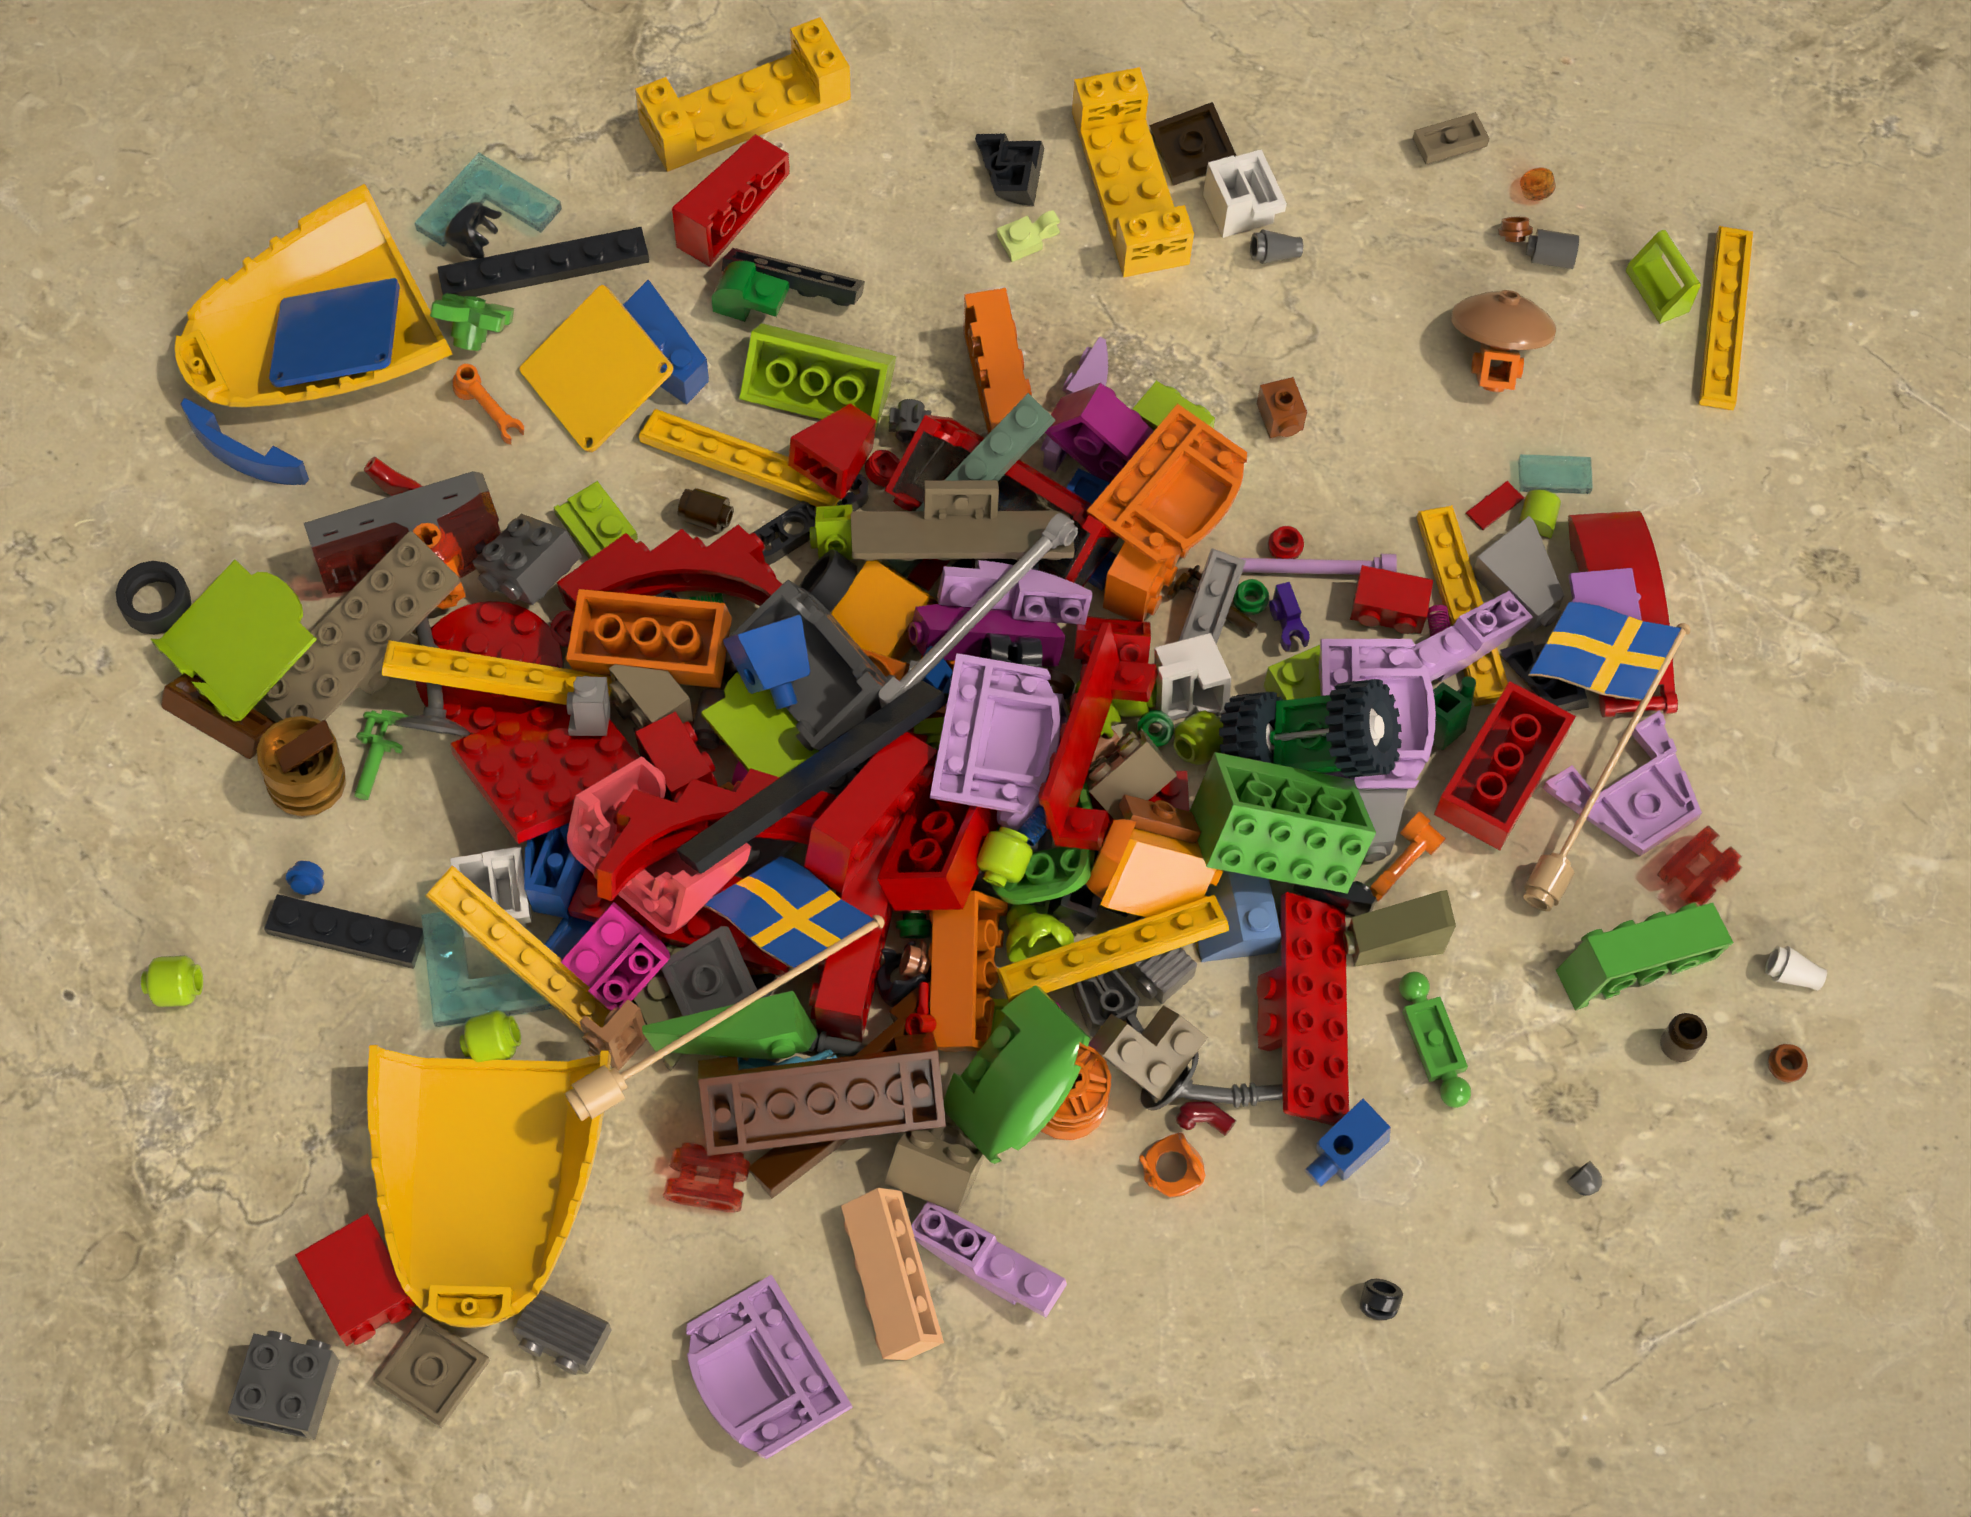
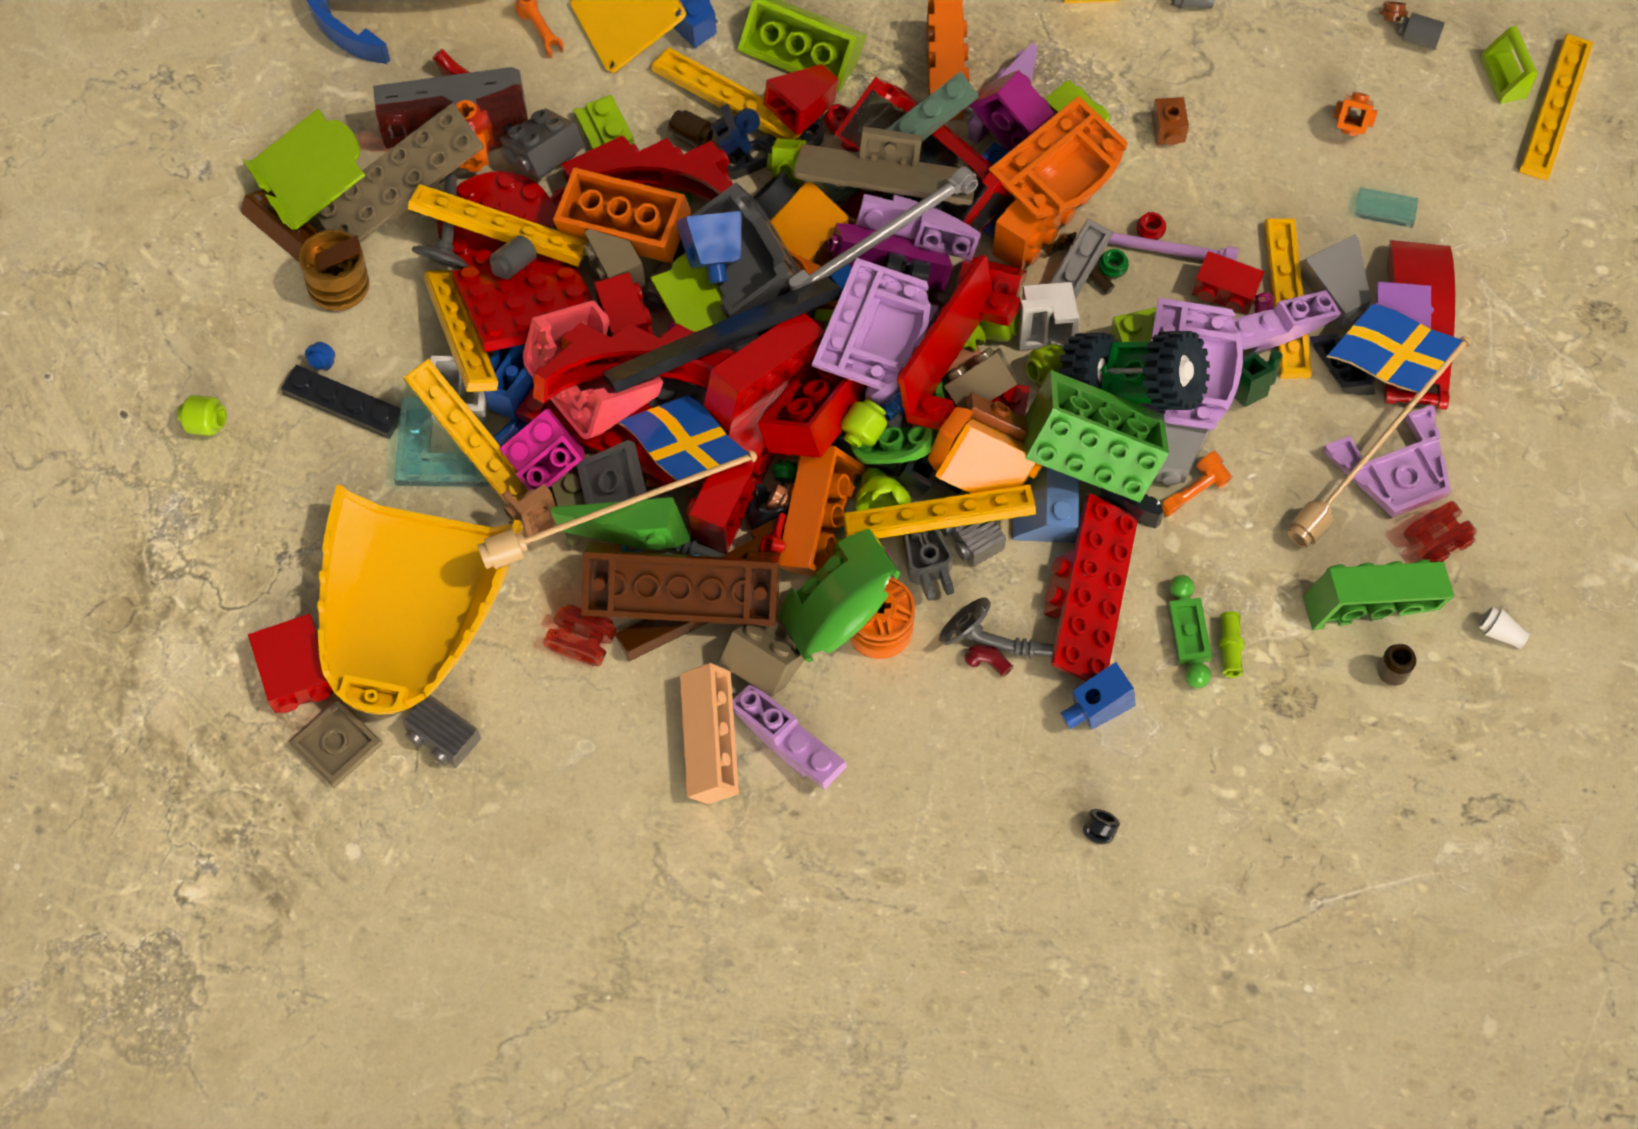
camera: 15 degrees right, 0 degrees up
(140, 576) = (246, 111): black tyre -> none
(284, 1384) = (219, 731): dark grey brick -> none
(377, 748) = (396, 270): bright green piece -> none
(483, 828) = (462, 339): none -> yellow tile
(490, 1037) = (435, 498): lime head -> none
(525, 715) = (512, 257): none -> dark grey brick
(589, 707) = (563, 258): light grey brick -> none
(760, 504) = (733, 131): none -> dark blue hips
(762, 1371) = (590, 789): lavender slope -> none
(906, 419) = (861, 81): dark grey gear -> none
(1154, 1056) = (954, 602): brick -> none
(1155, 716) = (1019, 360): green plate -> none
(1195, 1167) = (971, 697): orange piece -> none
(1287, 611) = (1139, 277): dark purple plate -> none
(1401, 930) = (1179, 540): olive slope -> none
(1487, 1046) = (1231, 644): none -> lime pin
(1495, 505) = (1331, 224): red window -> none
(1504, 320) = (1368, 78): medium nougat dish -> none
(1504, 765) = (1292, 426): red brick -> none
(1543, 509) = (1370, 233): lime brick -> none
(1586, 1180) = (1292, 764): dark grey hinge -> none
(1794, 1055) = (1487, 695): dark orange plate -> none

